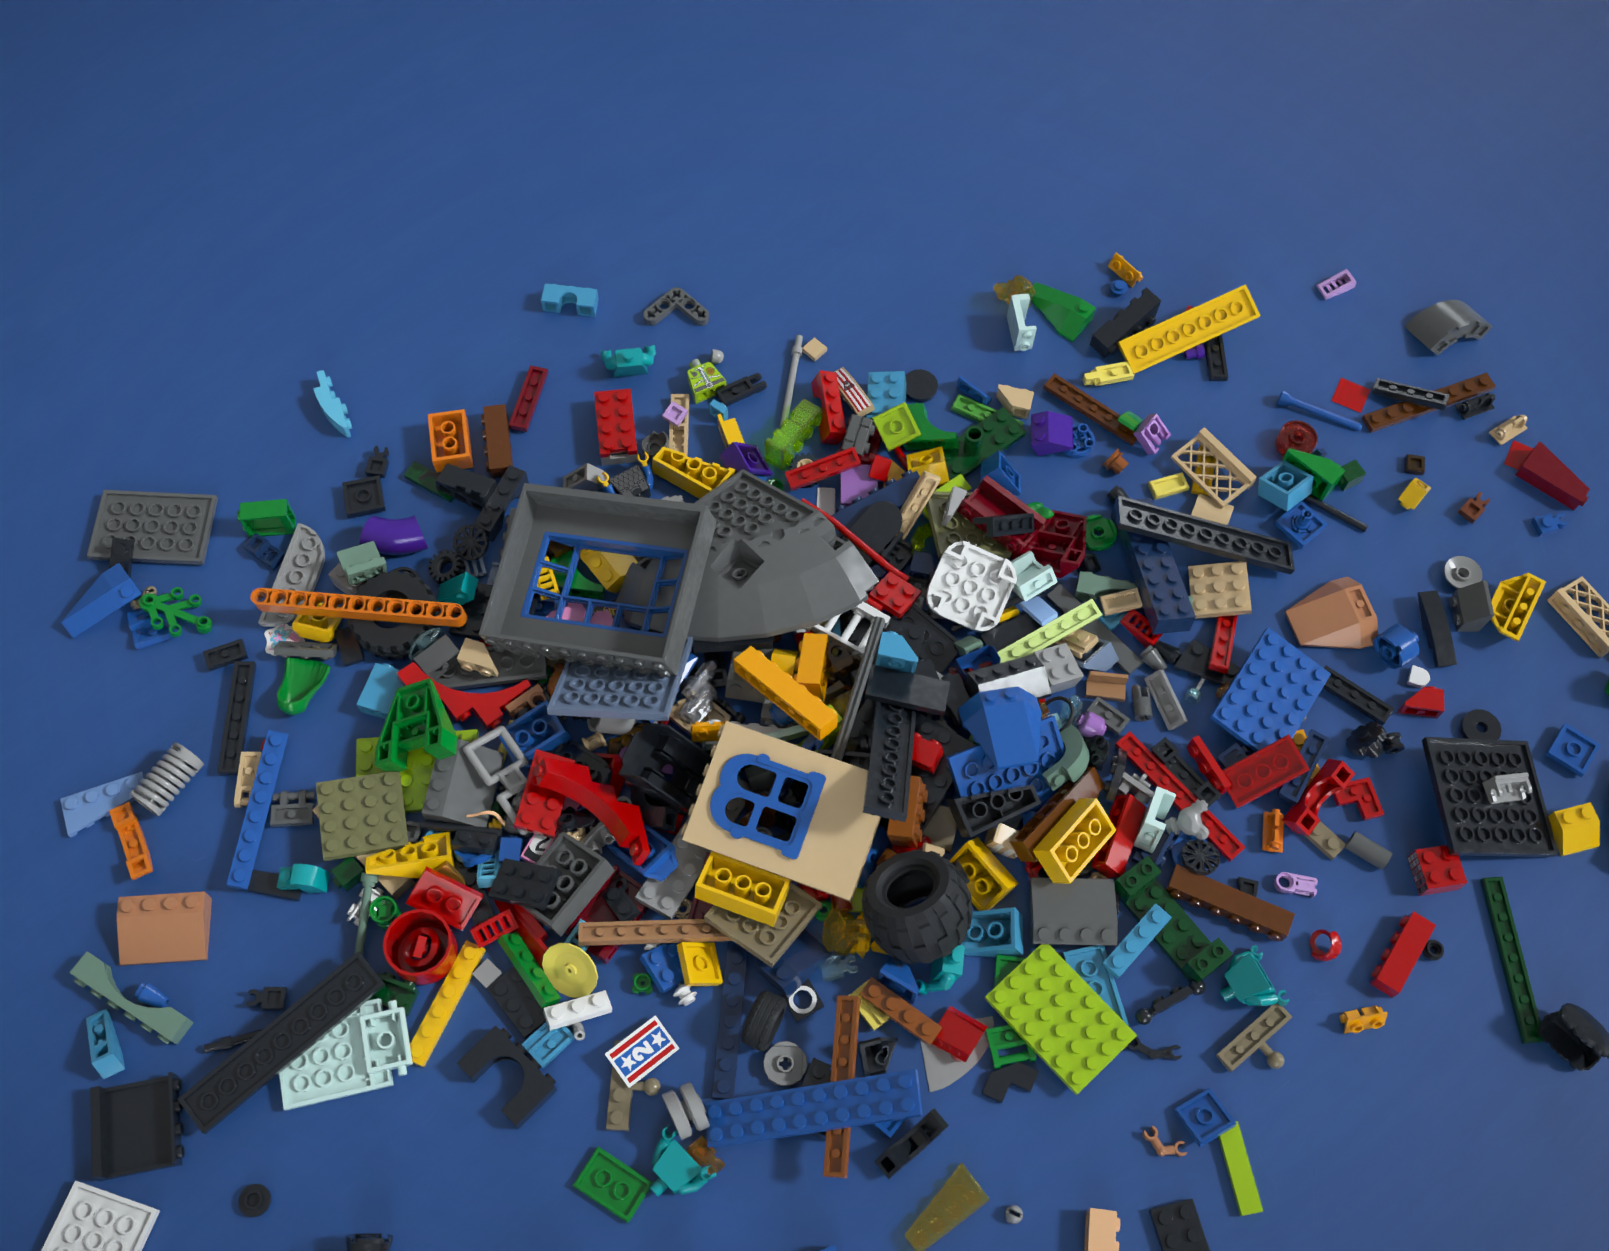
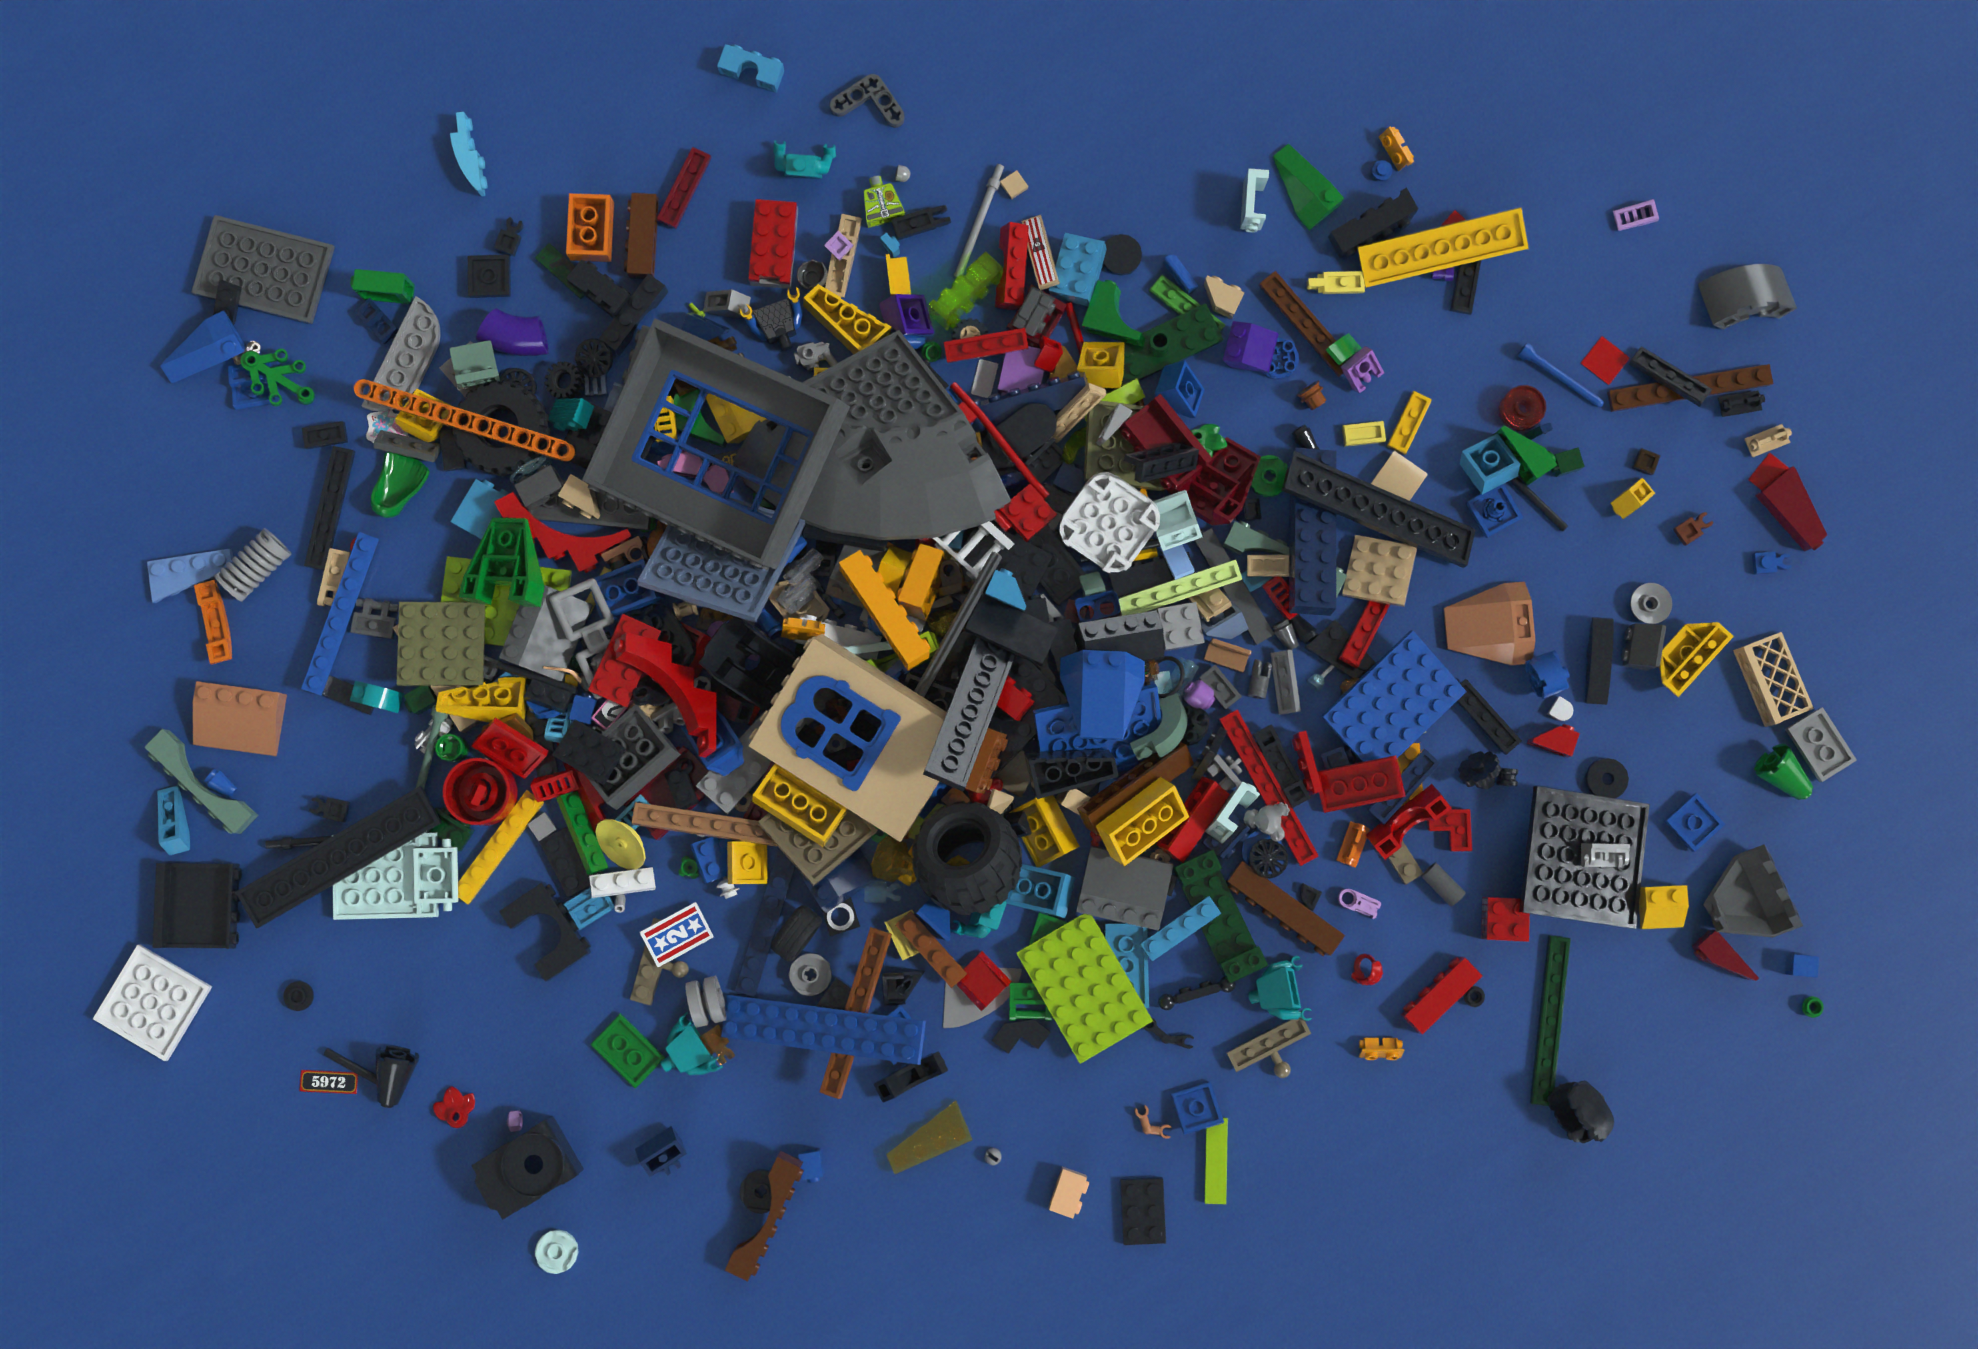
camera: 10 degrees right, 20 degrees up
(896, 426) = (1079, 309): lime tile -> none
(1014, 287) = (1257, 156): clear yellow hinge -> none
(1226, 460) = (1434, 421): tan fence -> none

